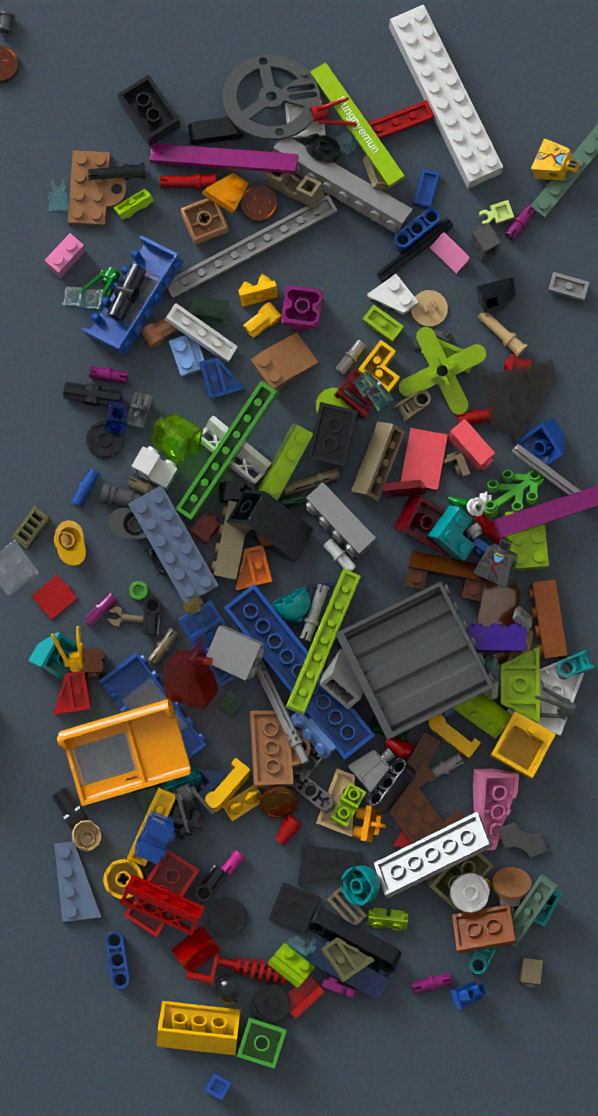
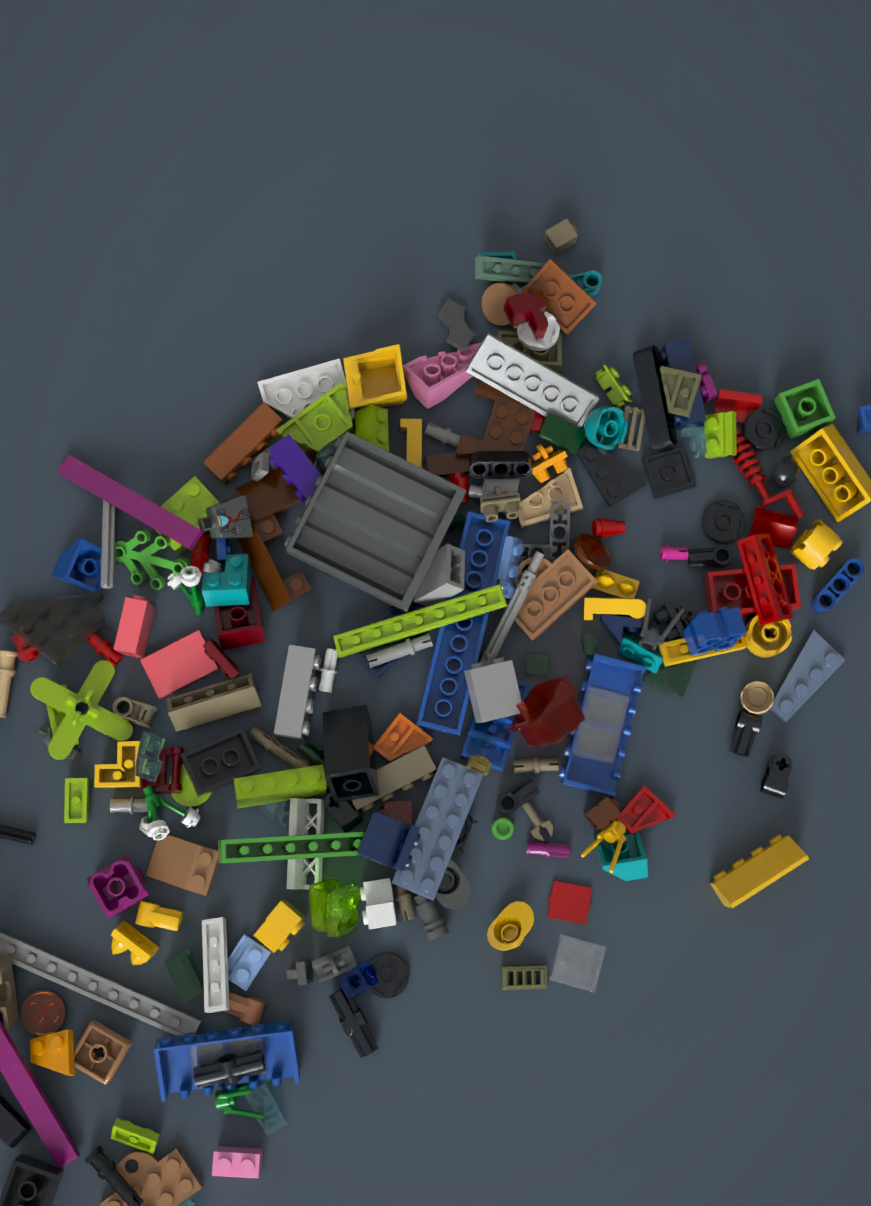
camera: 125 degrees left, 0 degrees up
(21, 803) = (775, 778): none -> black piece
(85, 487) = (447, 956): blue pin -> none
(108, 374) = (322, 1022): magenta pin -> none
(125, 752) = (644, 715): light orange piece -> none
(151, 386) = (302, 972): none -> dark grey tile
(158, 966) = (815, 545): none -> yellow brick
(189, 502) = (389, 841): none -> dark blue bracket
(193, 395) = (279, 926): none -> yellow brick
(198, 181) = (65, 1091): red pin -> none
(216, 748) = (588, 644): none -> clear green plate
(218, 378) = (247, 913): blue wing -> none
(294, 605) = (406, 674): teal cylinder -> none
(328, 360) = (157, 828): none -> plant
(347, 805) = (546, 490): lime slope -> none
(364, 762) = (499, 502): none -> dark tan hips
(381, 849) = (561, 433): none -> dark green slope
(394, 295) = (41, 811): white wing -> none
(431, 308) = (29, 769): tan piece -> none
(431, 983) = (637, 310): magenta pin -> none
(461, 467) = (160, 625): dark tan bracket -> none
(467, 994) = (623, 272): blue hips -> none
(490, 893) = (529, 309): none -> dark red brick
(564, 707) = (314, 370): dark grey plant -> none
(578, 664) = (265, 386): teal piece -> none

